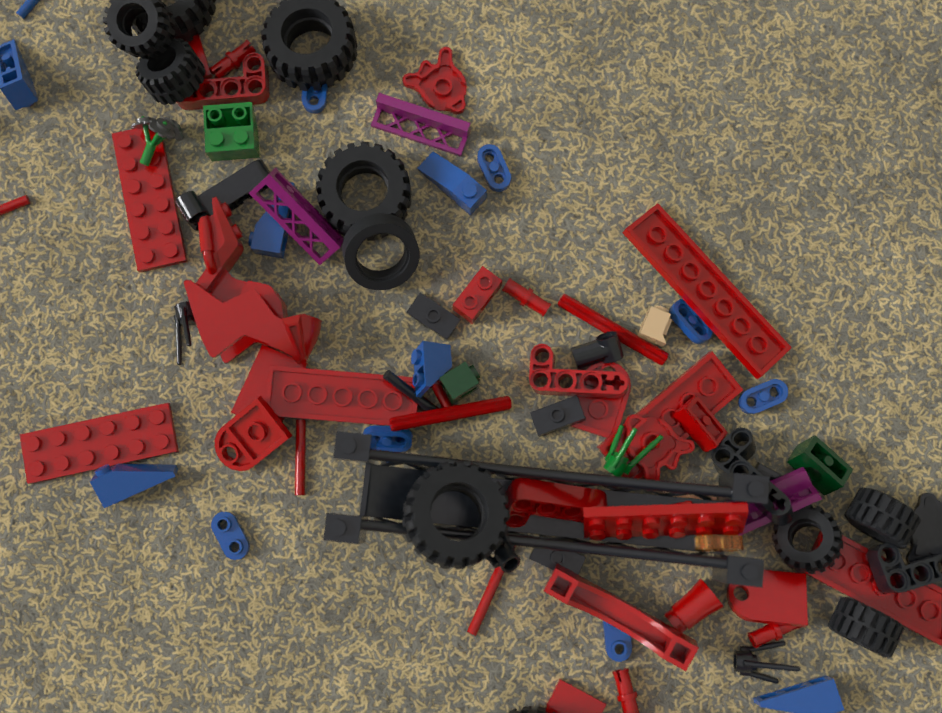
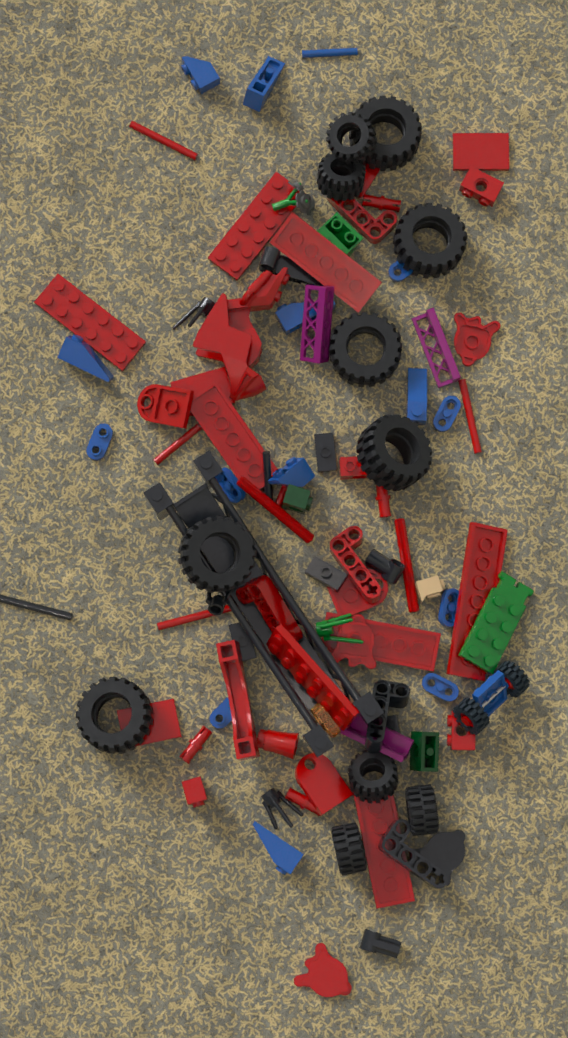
camera: 50 degrees right, 0 degrees up
(242, 155) = (325, 262): none -> red plate
(368, 227) = (321, 403): black tyre -> none
(489, 267) = (378, 462): none -> black tyre
(513, 148) = (469, 415): none -> red bar
(700, 424) = (391, 661): red slope -> none
(744, 290) = (495, 623): none -> green hinge
(827, 385) = (475, 712): none -> plate
(839, 412) = (457, 742): none -> red brick

